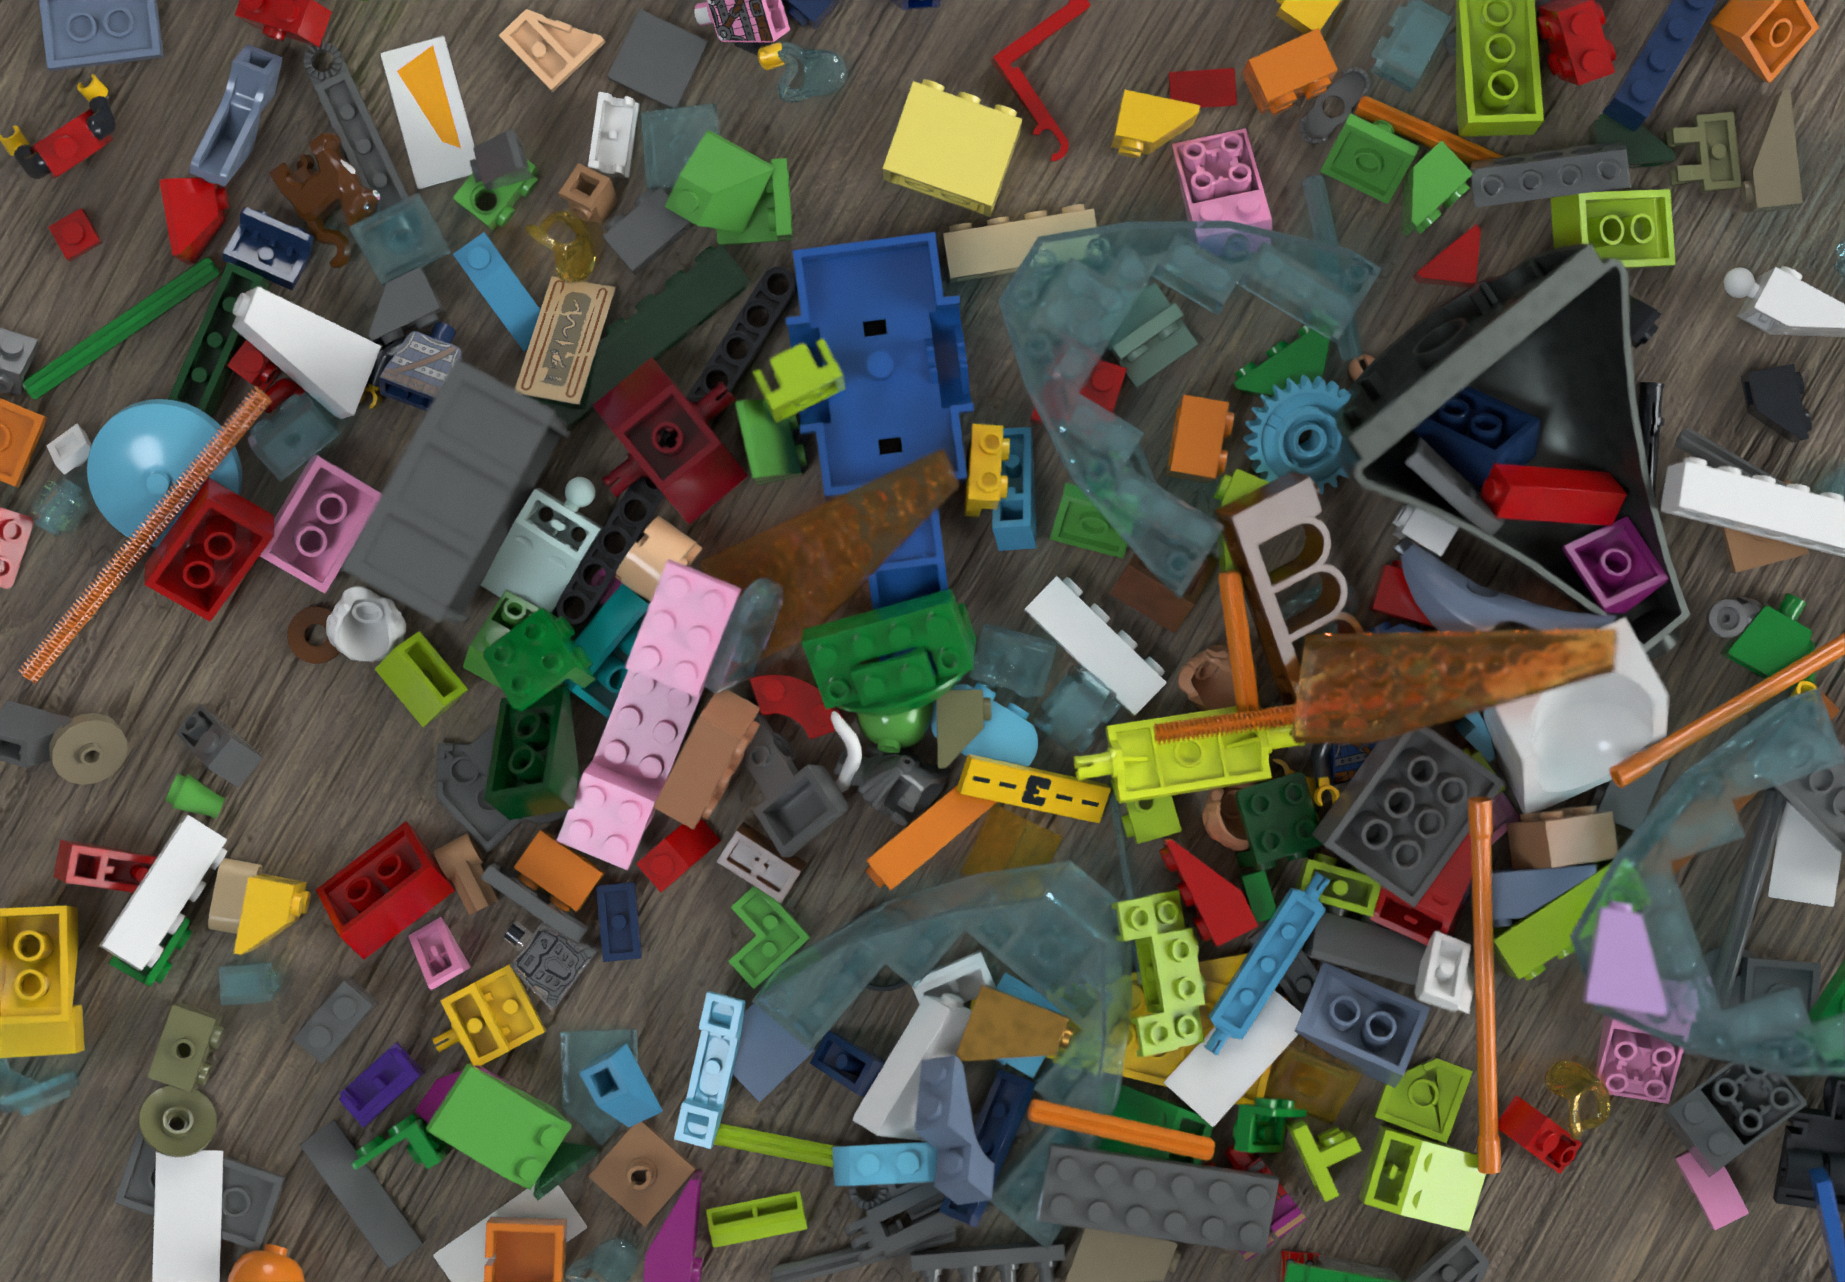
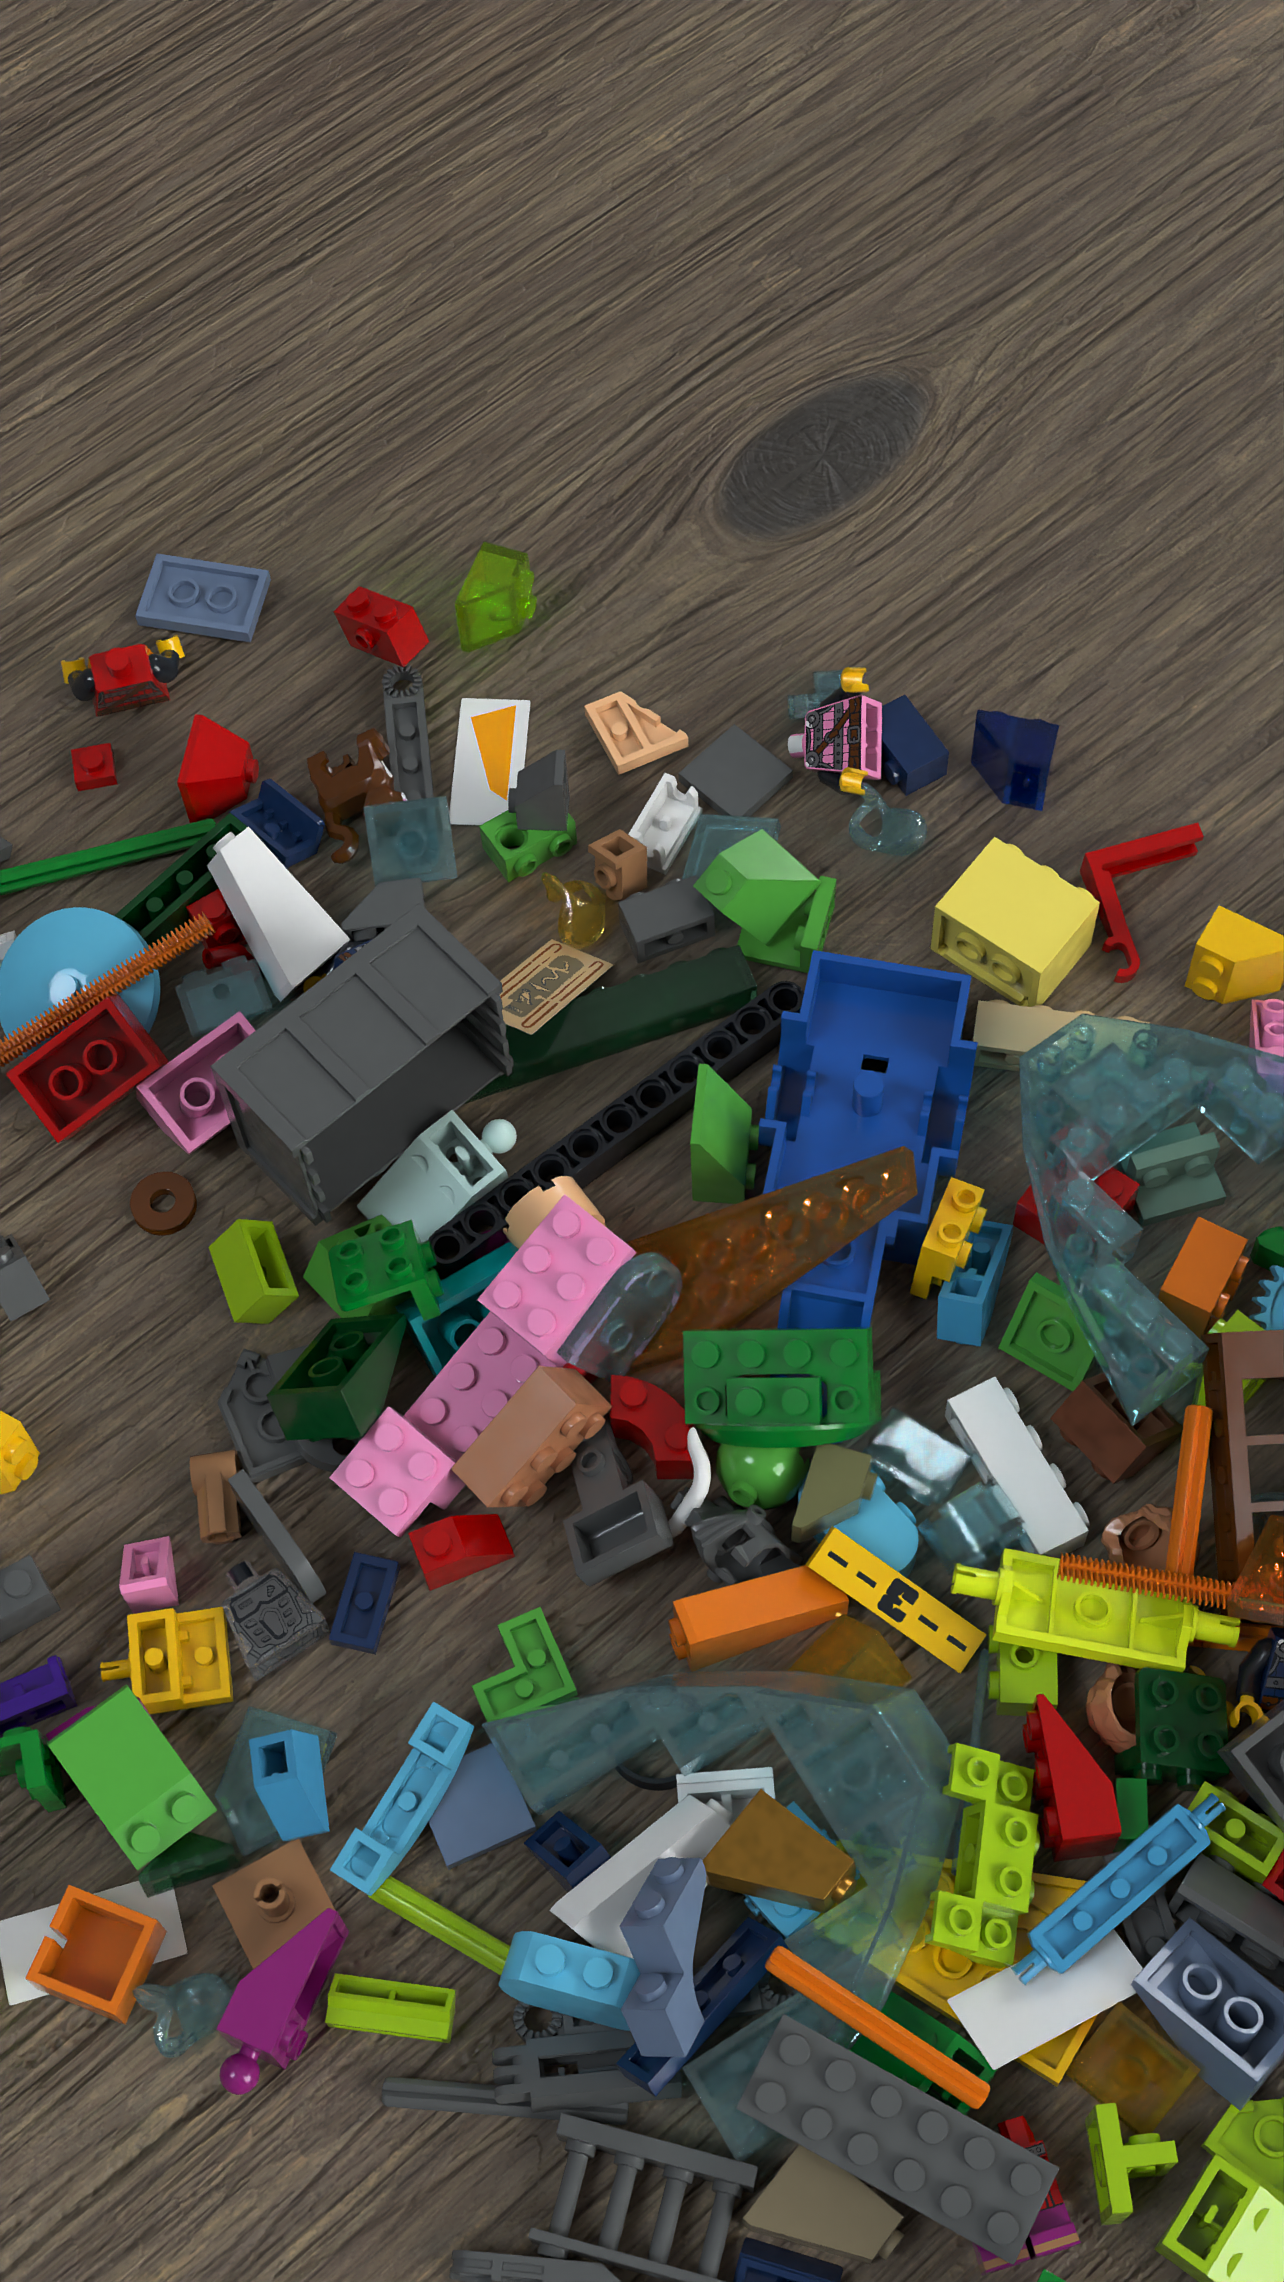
camera: 25 degrees right, 25 degrees down
(236, 121) = (288, 711): sand blue arch -> none
(365, 625) = (215, 1196): white hair -> none
(384, 891) = (118, 1485): red slope -> none
(500, 288) = (492, 919): dark azure slope -> none
(558, 871) = (320, 1522): orange brick -> none
(693, 471) = (616, 1107): dark red slope -> none
(760, 863) = (550, 1586): hinge -> none
(800, 380) = (779, 1068): lime panel -> none
(1263, 1124) = (1058, 2097): green bracket -> none

